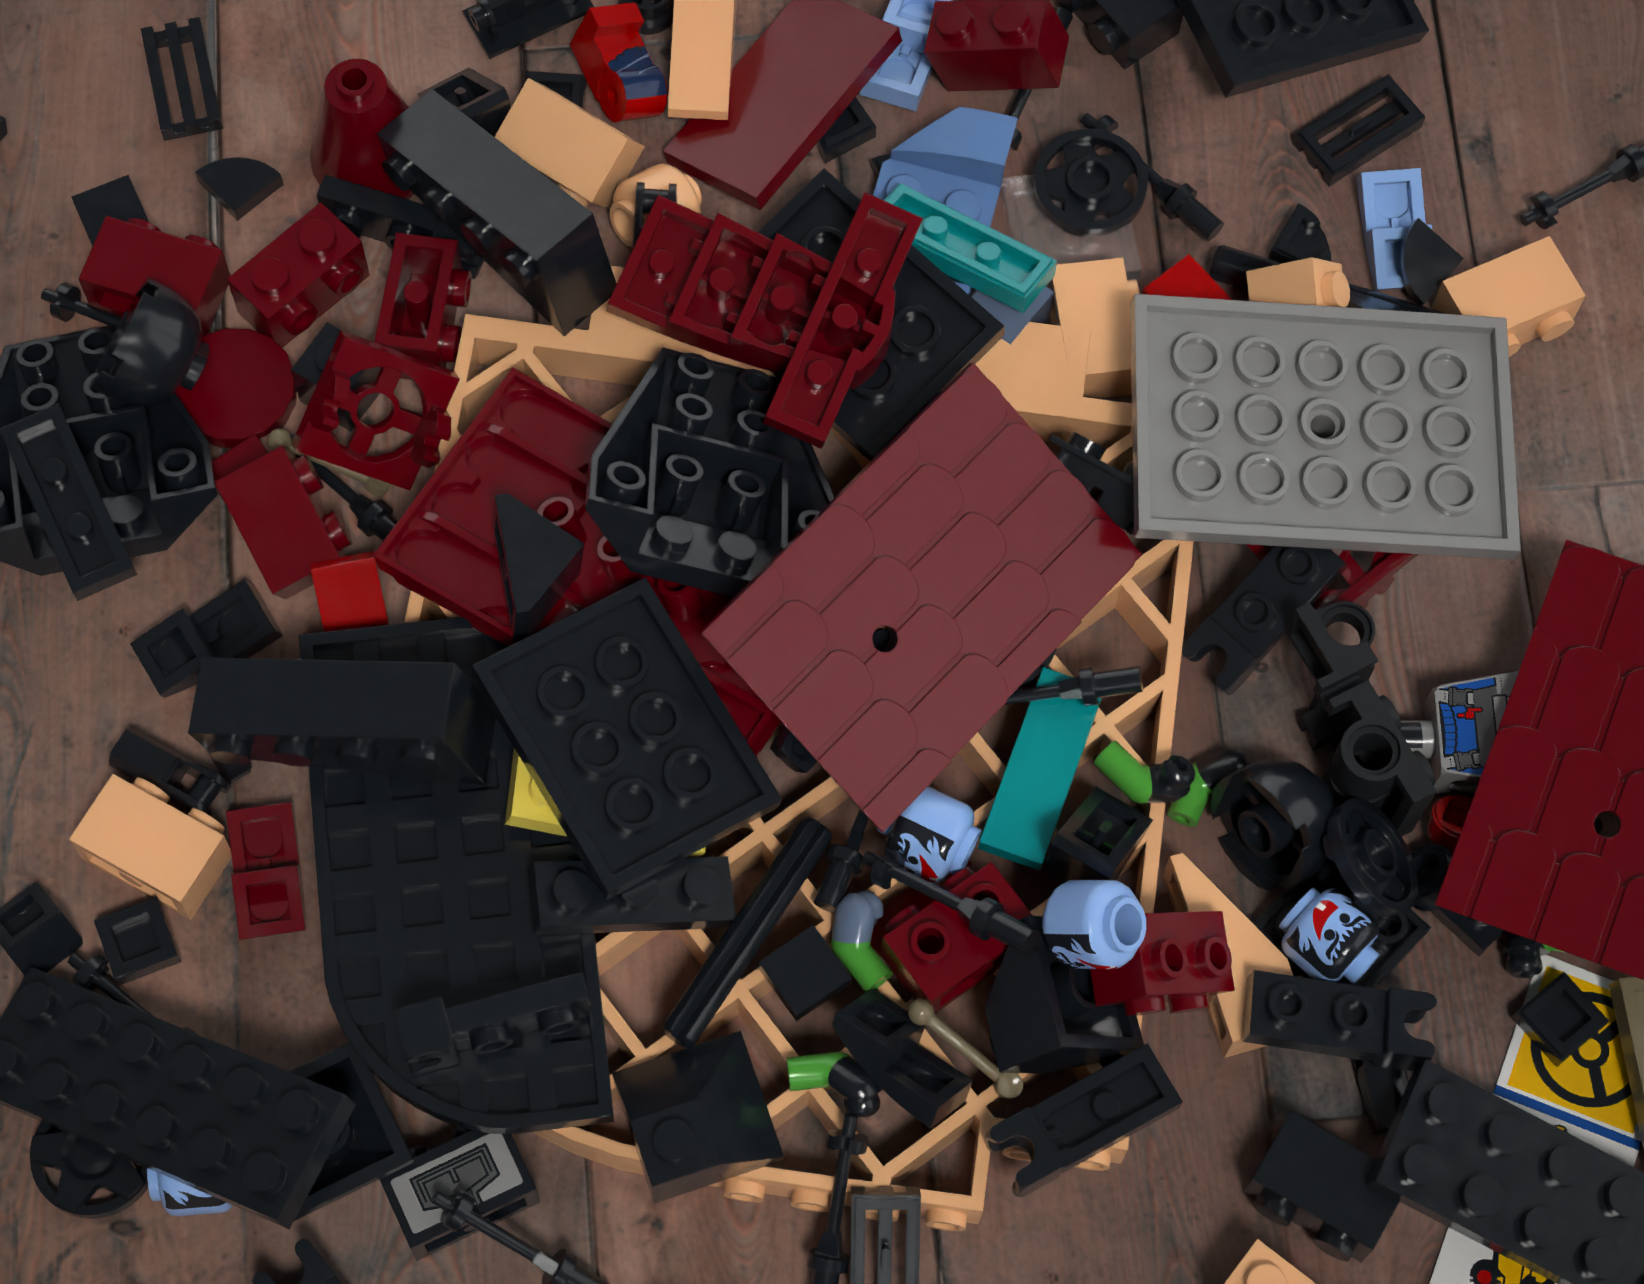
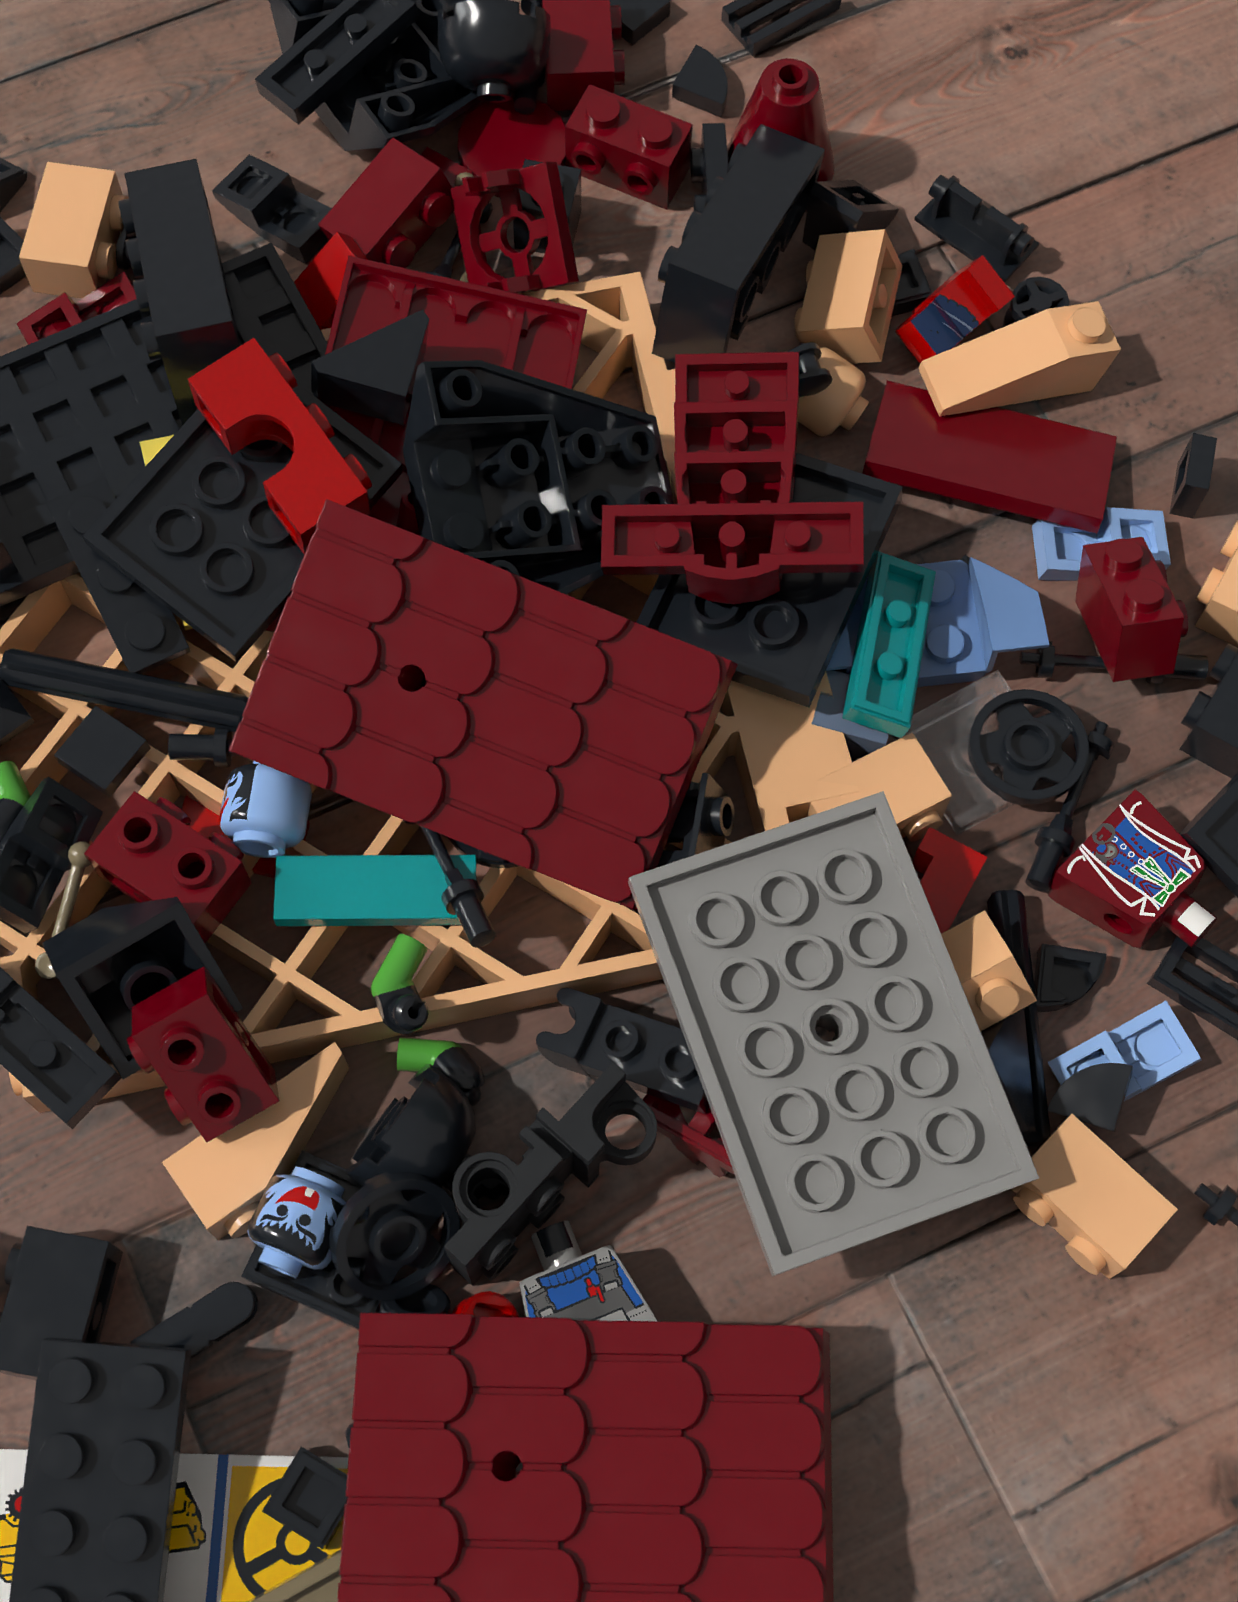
camera: 70 degrees right, 0 degrees up
(423, 298) = (628, 232): dark red brick -> none
(653, 648) = (253, 400): none -> red arch
(847, 132) = (985, 524): black tile -> none
(852, 937) = (149, 777): arm -> none
(984, 917) = (166, 864): black piece -> none
(1093, 924) = (180, 958): light blue head -> none
(1096, 839) = (310, 960): black slope -> none
(1242, 148) = (1135, 877): none -> dark red torso
(1336, 1019) = (210, 1251): black plate -> none

